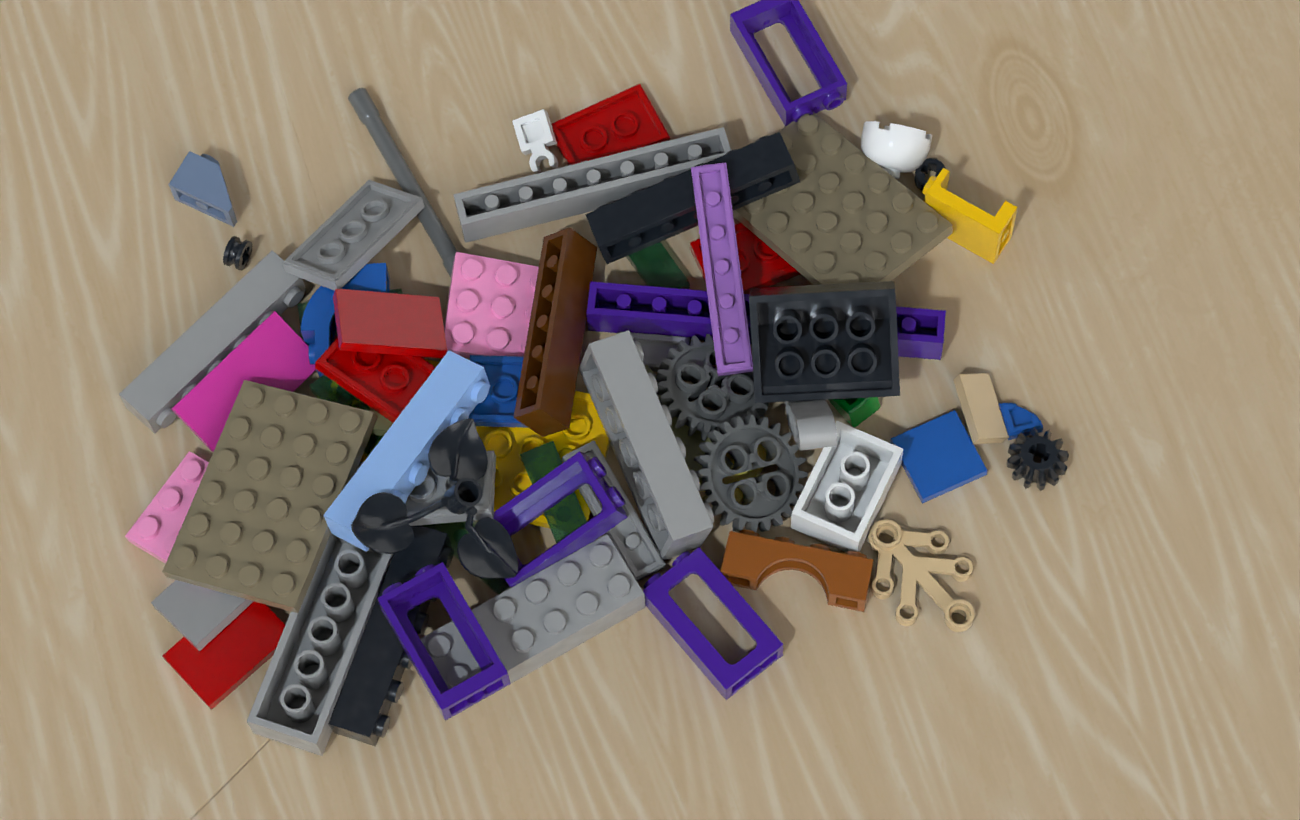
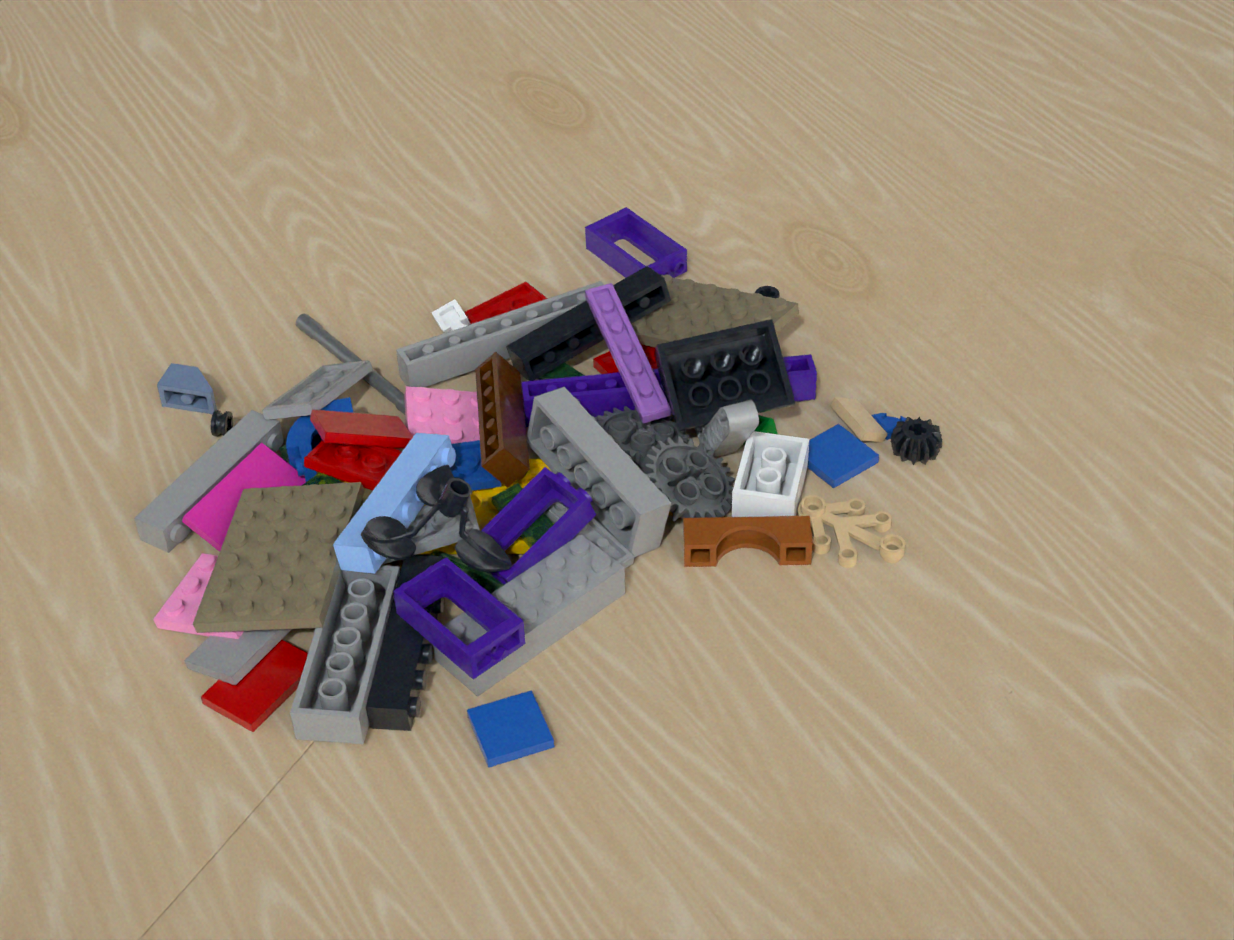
camera: 15 degrees left, 25 degrees down
(478, 771) = (510, 728): none -> blue tile
(724, 676) = (677, 603): dark purple piece -> none
(895, 147) = (737, 272): white cylinder -> none
(971, 225) = (819, 307): yellow panel -> none

